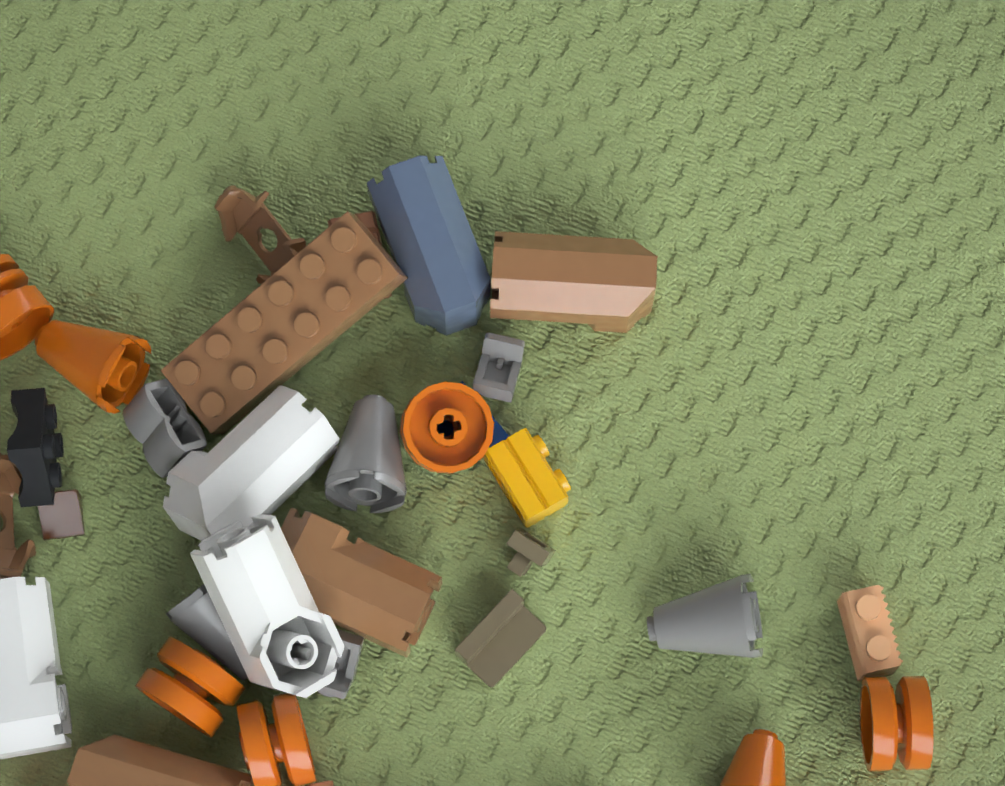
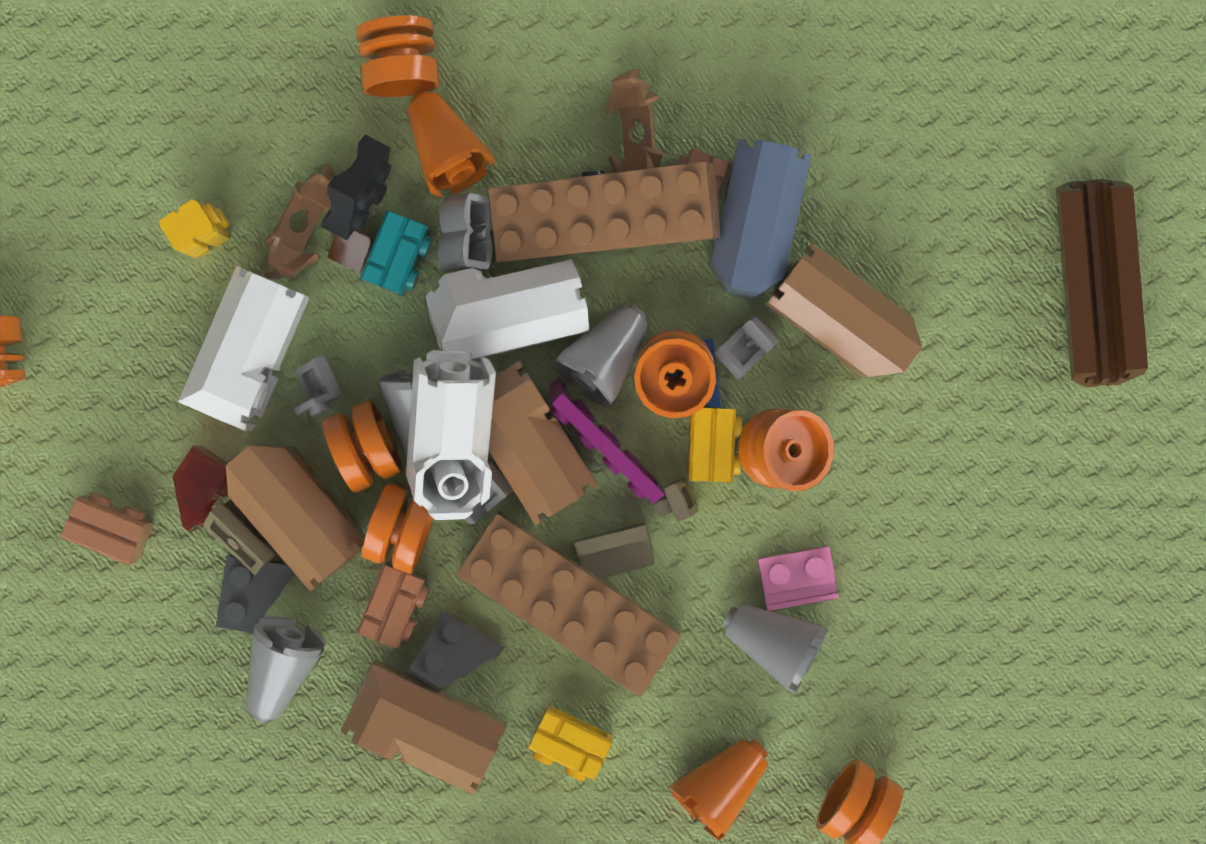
camera: 30 degrees right, 15 degrees up
(109, 491) = (397, 253): none -> teal brick
(109, 663) = (318, 385): none -> light grey bracket
(408, 535) = (641, 480): none -> magenta wing
(488, 713) = (569, 604): none -> medium nougat brick
(597, 433) = (786, 449): none -> orange wheel
(692, 552) = (797, 578): none -> bright pink plate
(786, 110) = (1101, 282): none -> reddish brown piece
(869, 632) = (886, 725): light nougat brick -> none

